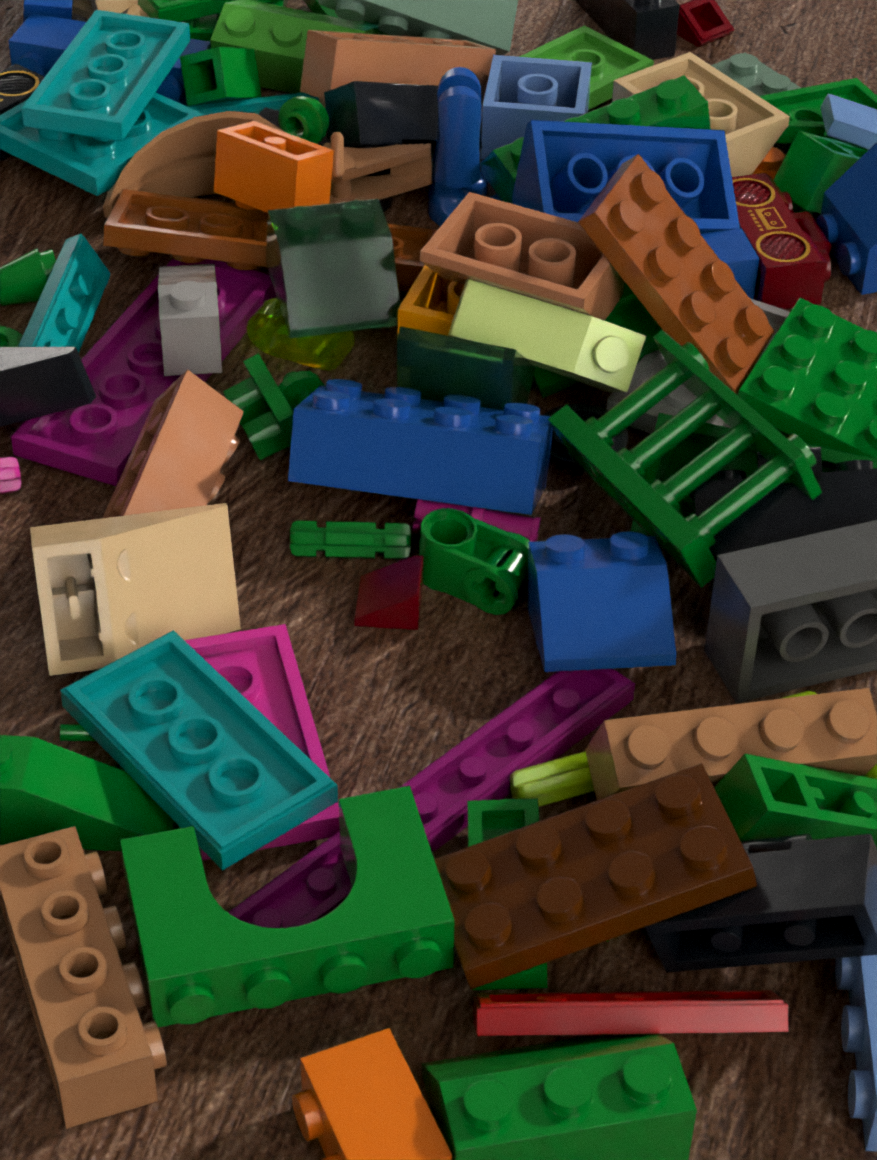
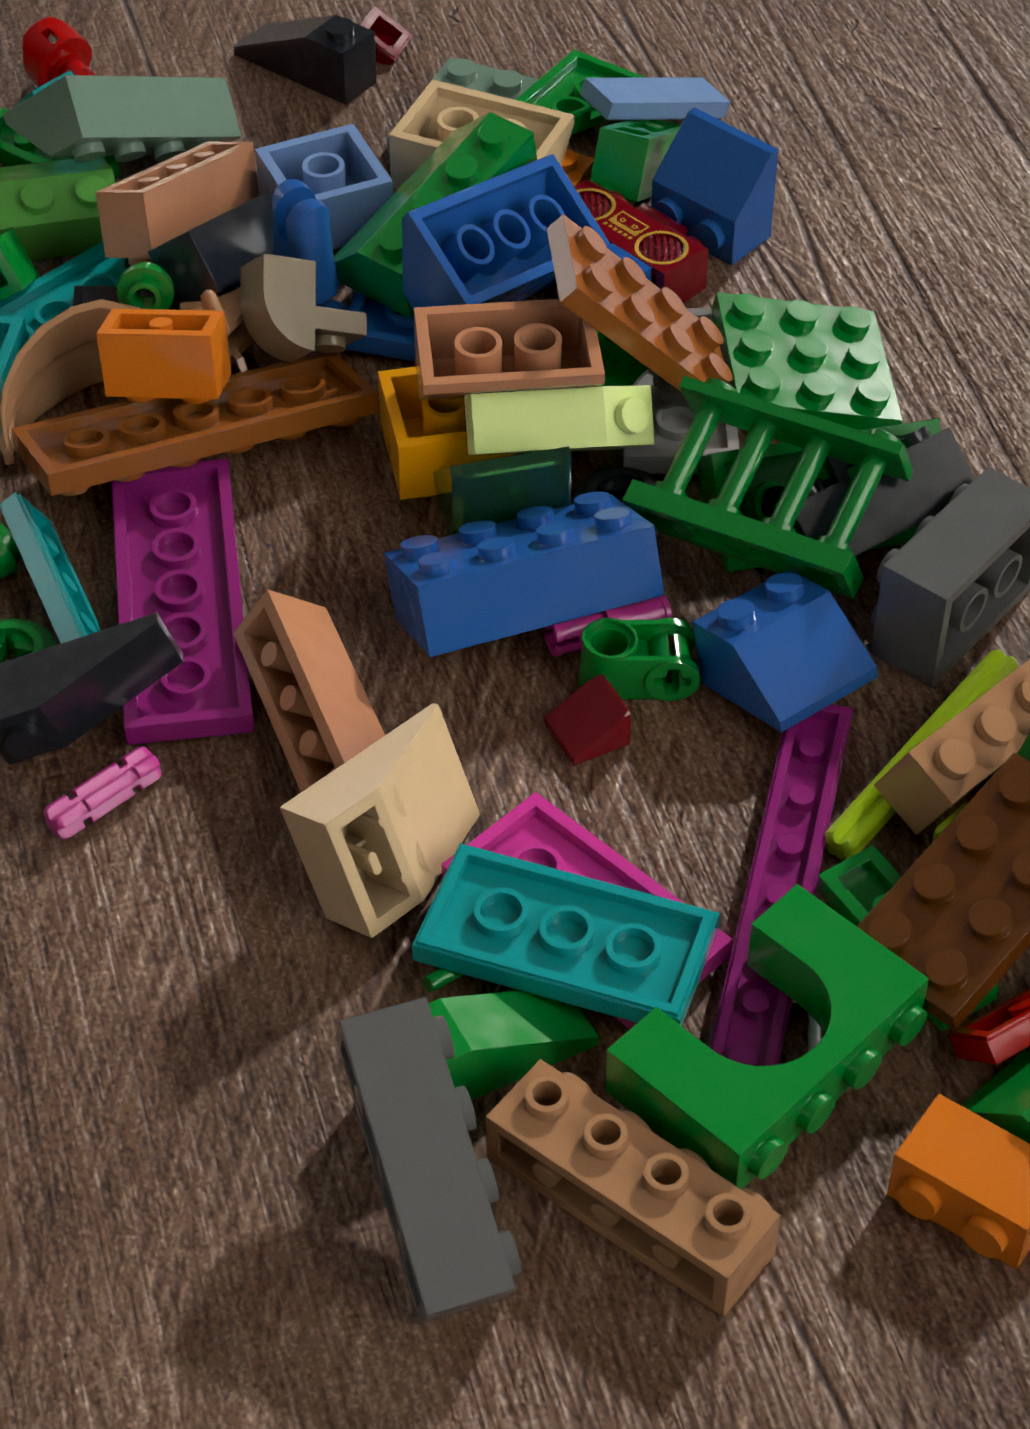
camera: 30 degrees left, 5 degrees up
(189, 319) = (198, 531): light grey slope -> none
(268, 406) = (348, 583): green hips -> none
(271, 336) = (296, 508): clear neon green beam -> none
(333, 267) = (308, 431): clear green slope -> none
(350, 539) = (508, 687): green axle -> none
(396, 174) = (283, 312): none -> dark tan brick
(608, 59) = (311, 109): bright green plate -> none

